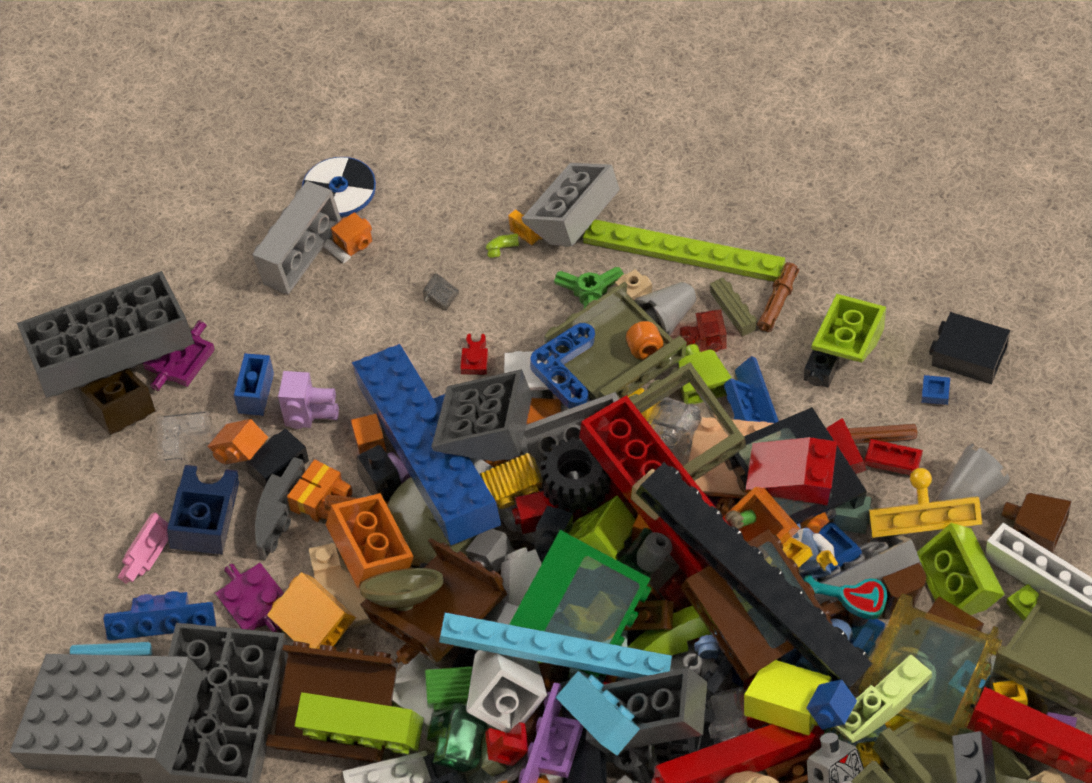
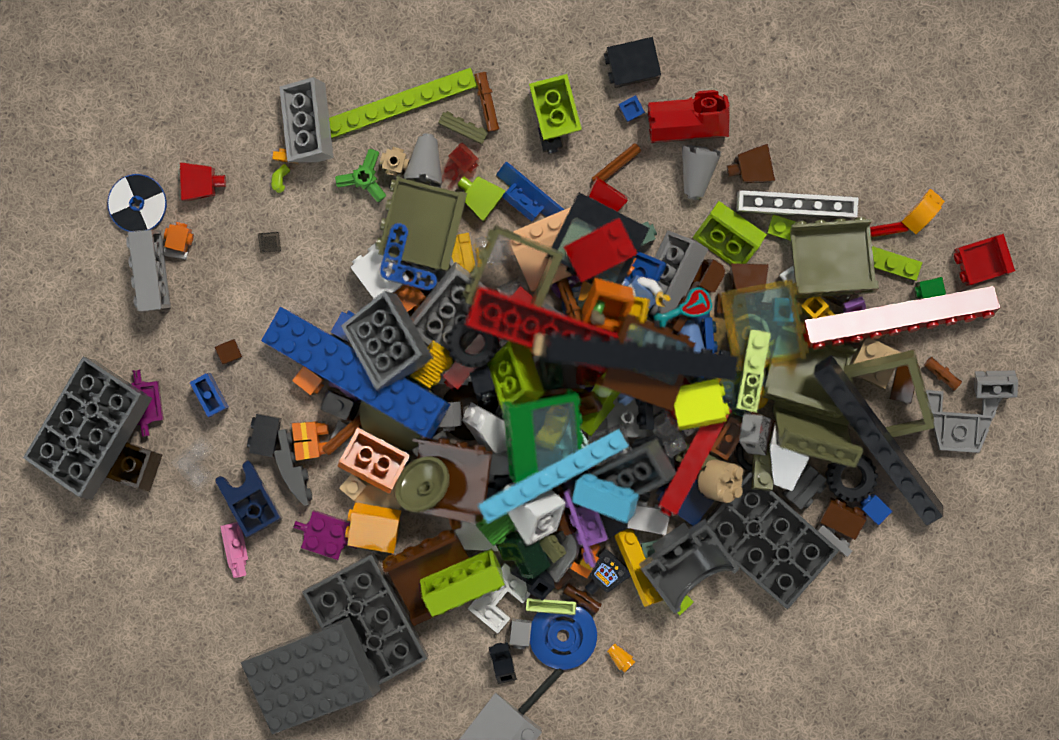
camera: 40 degrees left, 35 degrees up
(135, 649) = (270, 625): medium azure axle -> none
(157, 616) = (279, 583): blue bracket -> none
(237, 442) = (235, 445): orange brick -> none
(304, 403) = (249, 389): lavender brick -> none
(310, 362) = (228, 352): none -> reddish brown slope
(416, 199) = (199, 181): none -> red torso
(475, 357) = (329, 276): red plate -> none
(507, 747) = (560, 542): red panel -> none
(643, 339) = (439, 208): orange head -> none
(654, 552) = (564, 373): dark grey brick -> none
(831, 704) = (734, 402): blue brick -> none
(892, 457) = (637, 177): red plate -> none
(924, 514) = (688, 212): yellow plate -> none
(991, 424) = (689, 119): none -> red brick

